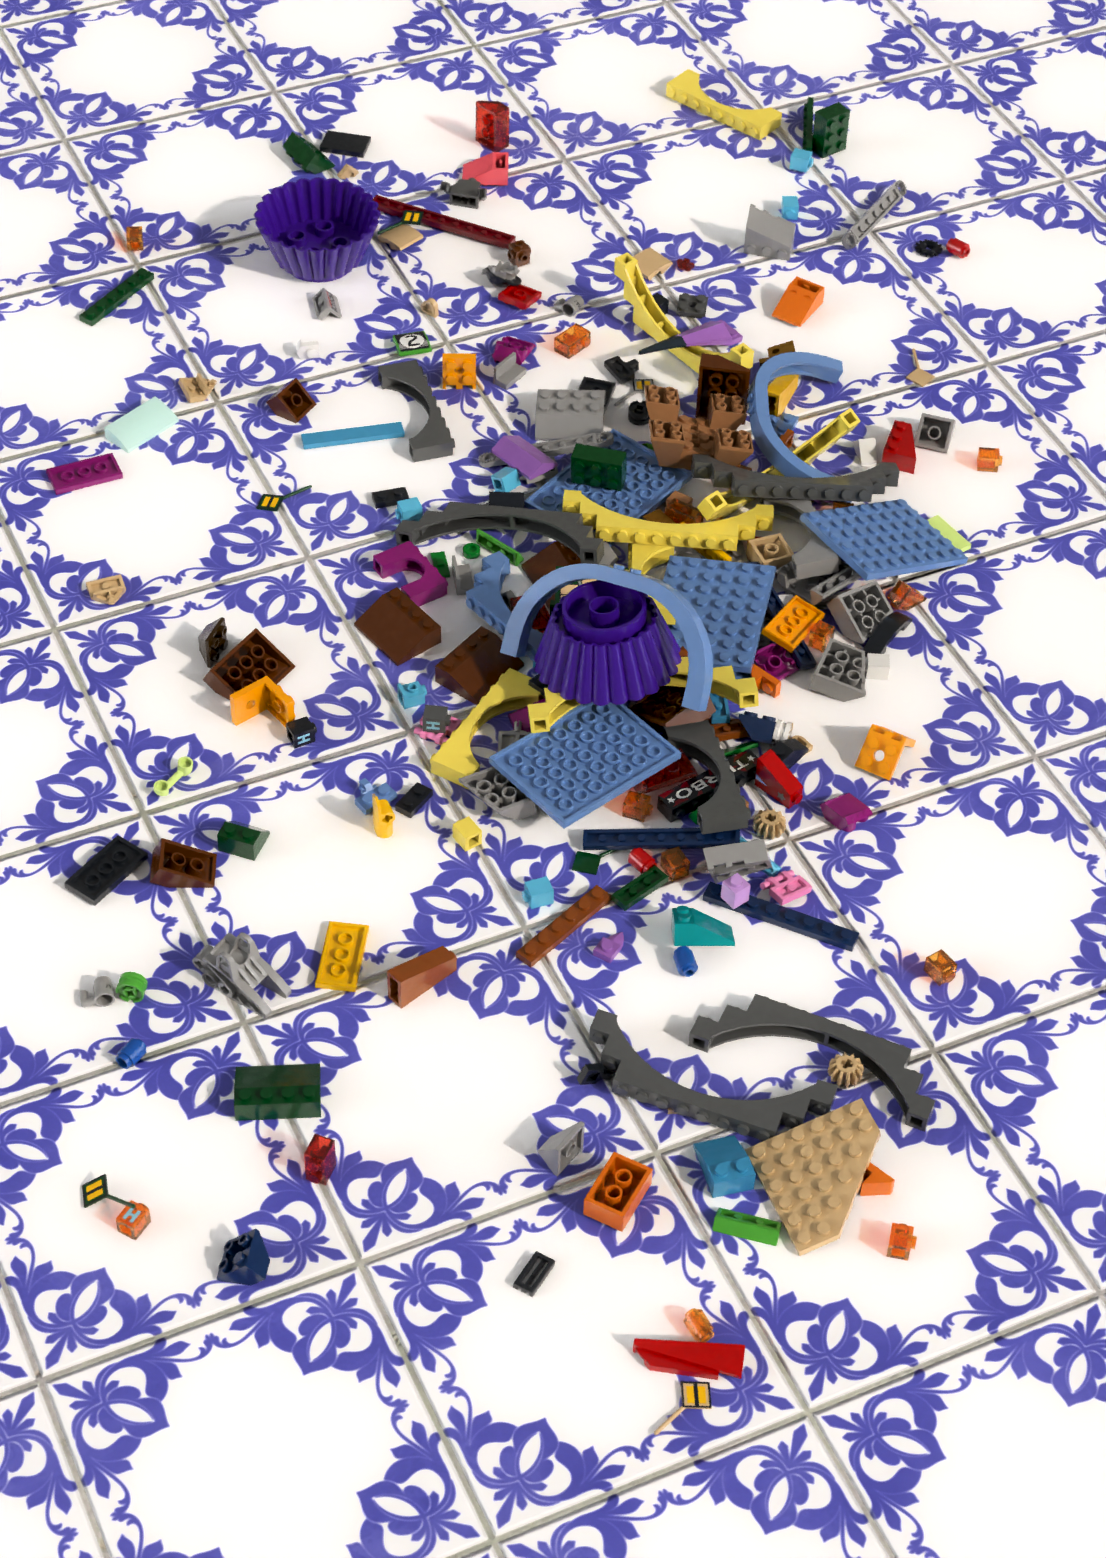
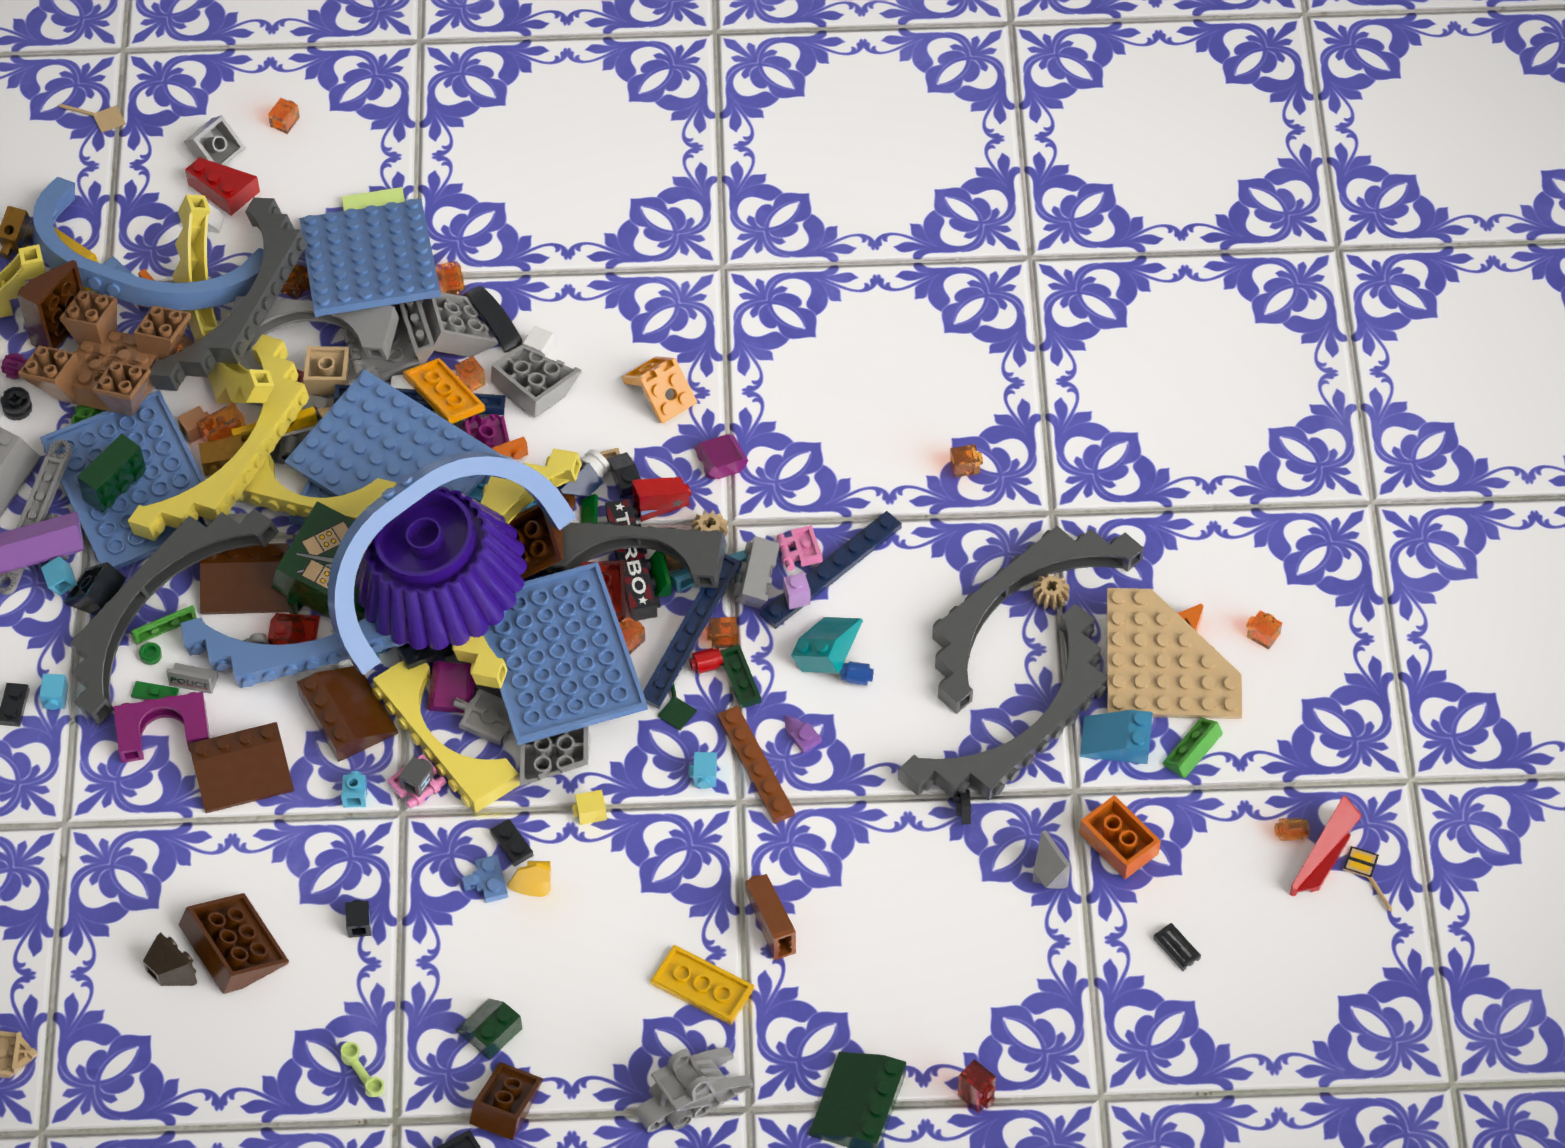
camera: 65 degrees left, 10 degrees up
(262, 696) = (304, 927): light orange bracket -> none

